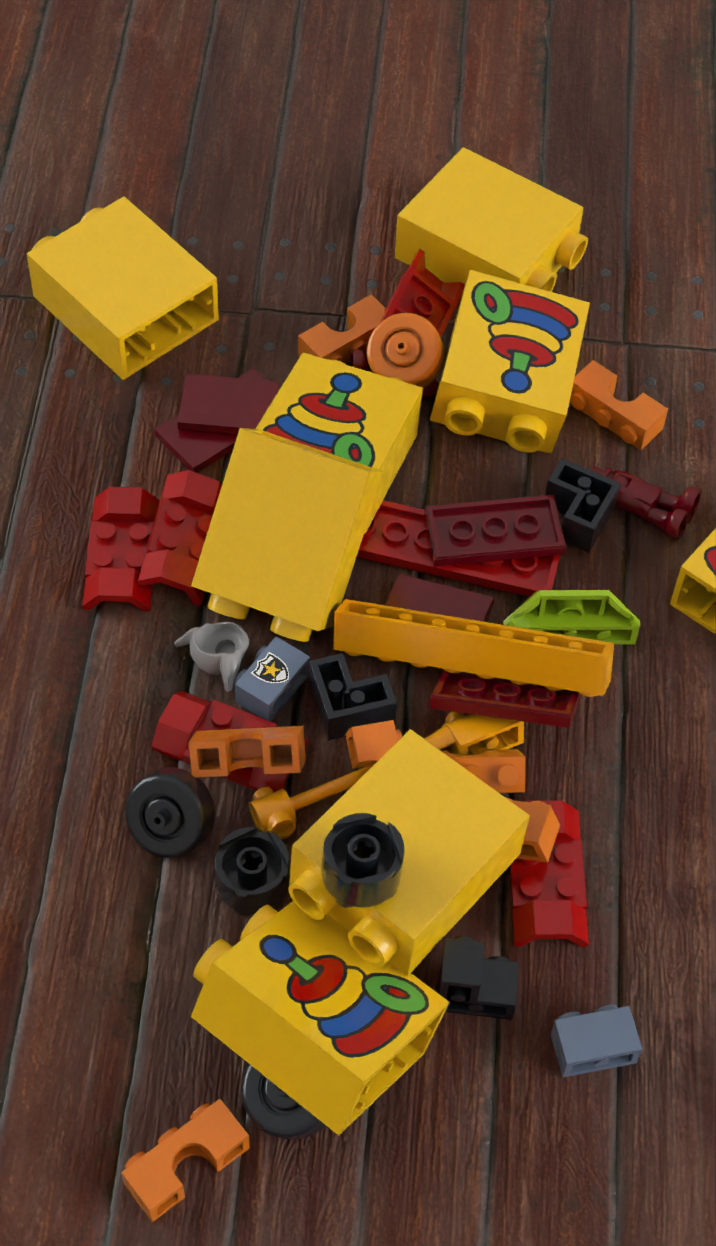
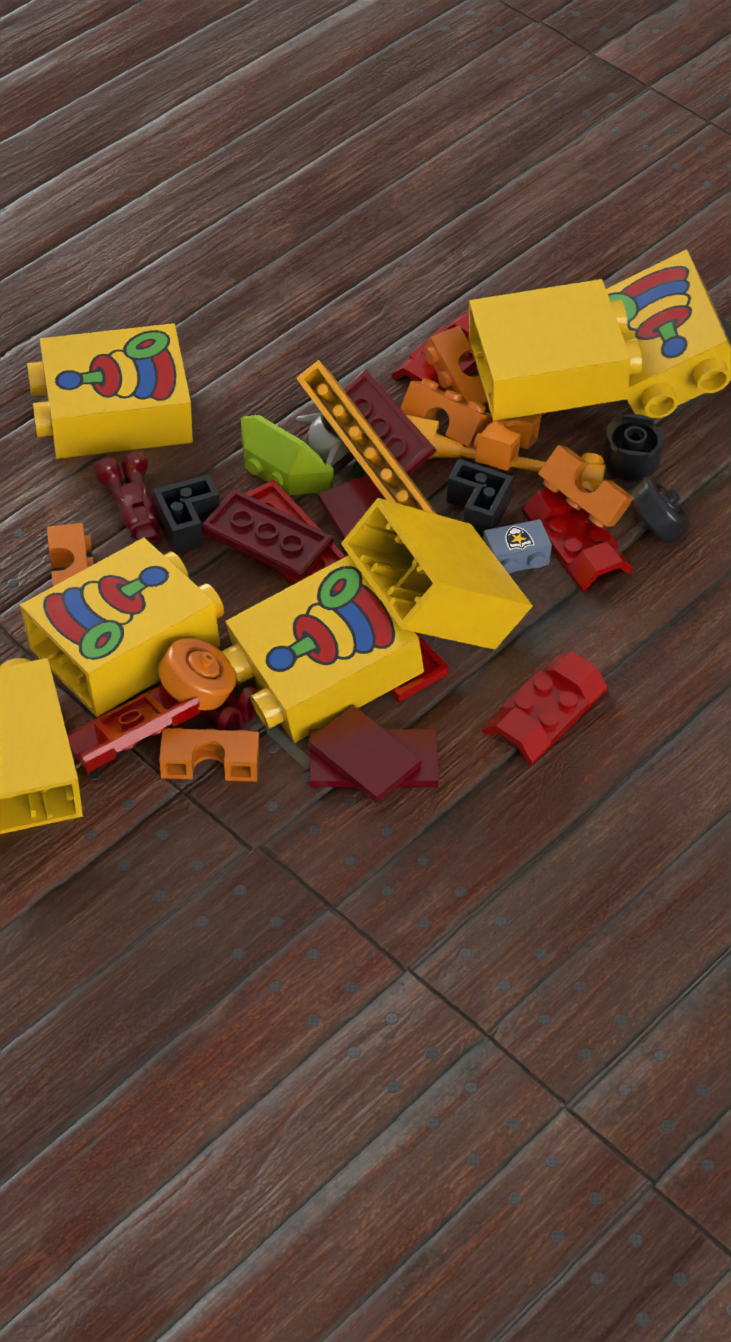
camera: 140 degrees left, 5 degrees down
(123, 286) = (361, 910): yellow brick -> none
(180, 532) = (496, 674): red piece -> none
(217, 649) = (541, 583): light grey piece -> none
(362, 860) = (604, 307): black brick -> none
(595, 1040) = (506, 270): sand blue brick -> none

